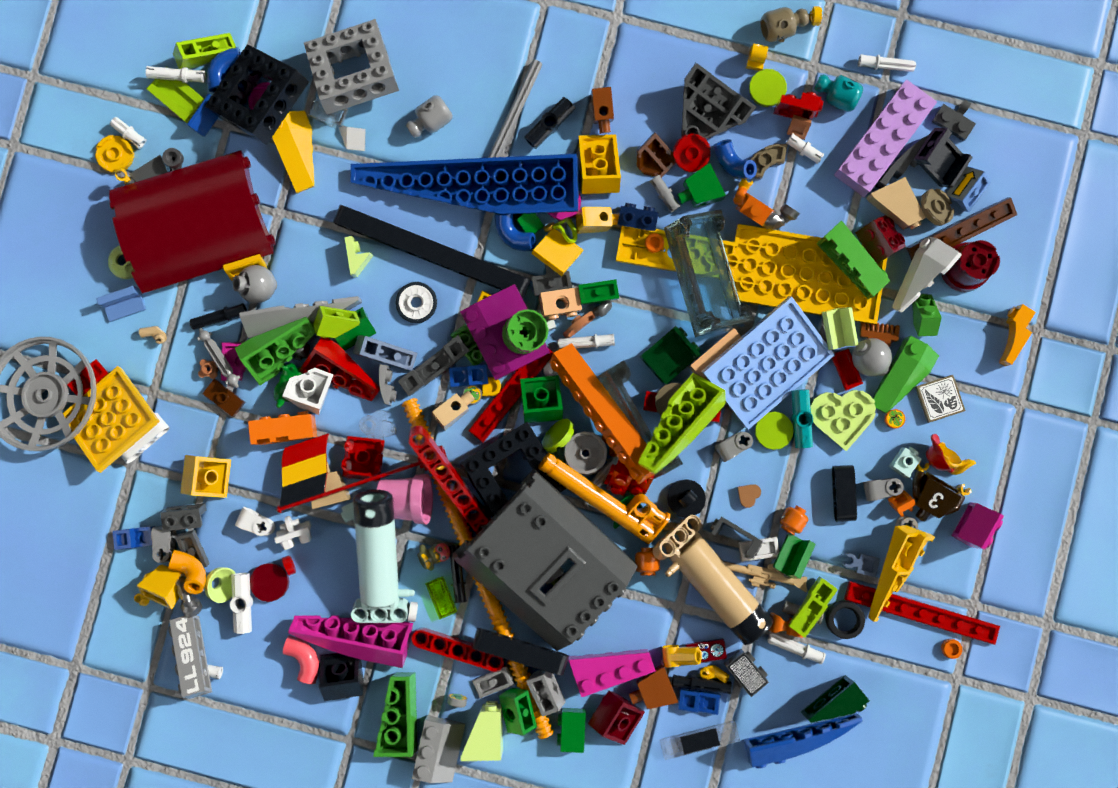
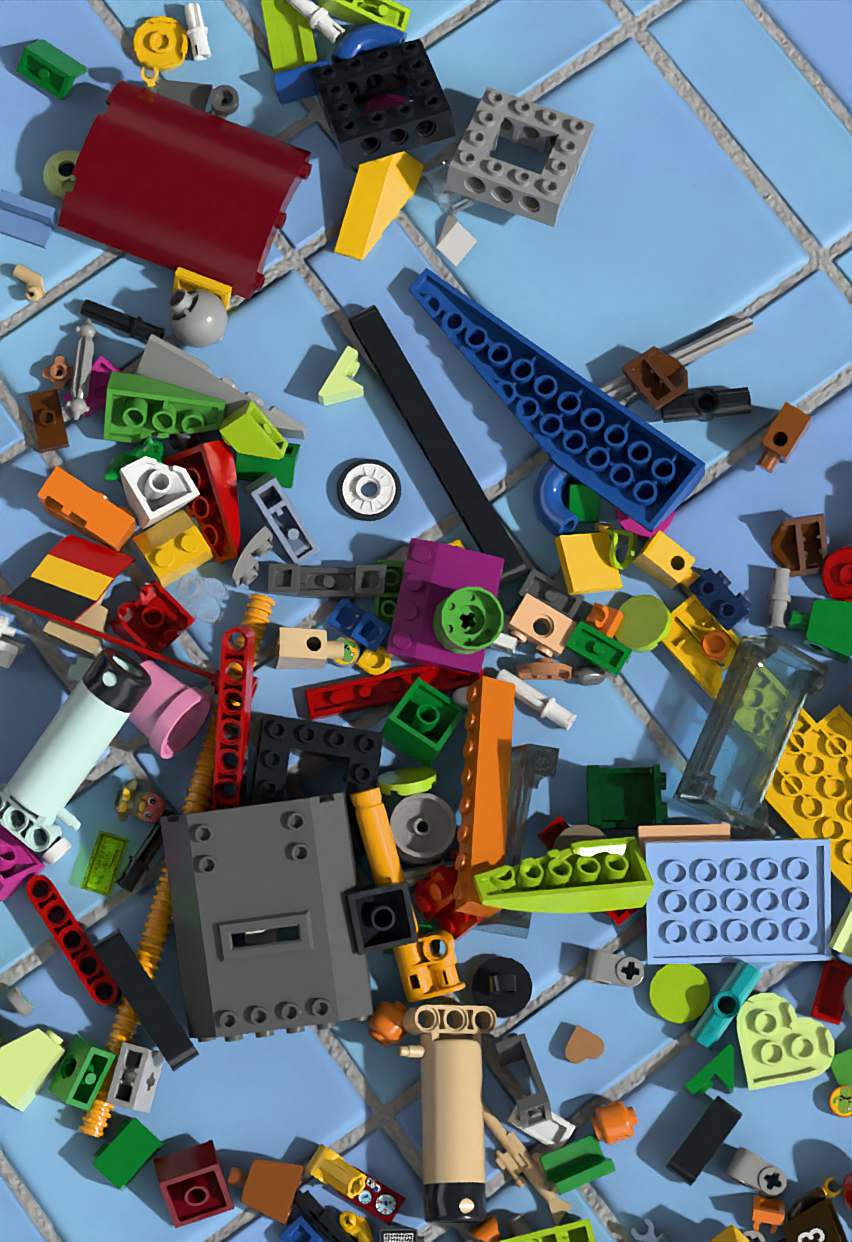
camera: 35 degrees right, 10 degrees down
(67, 212) = (50, 68): none -> green panel
(341, 412) = (173, 547): none -> yellow slope
(431, 116) = (568, 286): light grey piece -> none
(494, 681) = (83, 1017): light grey slope -> none
(514, 128) = (656, 377): none -> reddish brown slope
(588, 274) = (604, 619): none -> orange tile
(599, 164) = (725, 500): yellow slope -> none
(604, 516) = (382, 916): none -> black slope
(608, 261) = (644, 623): none -> lime tile
(609, 669) = (227, 1112): dark pink wedge -> none
(822, 451) = (720, 1068): none -> green slope
(899, 462) = (802, 1167): light aqua brick -> none

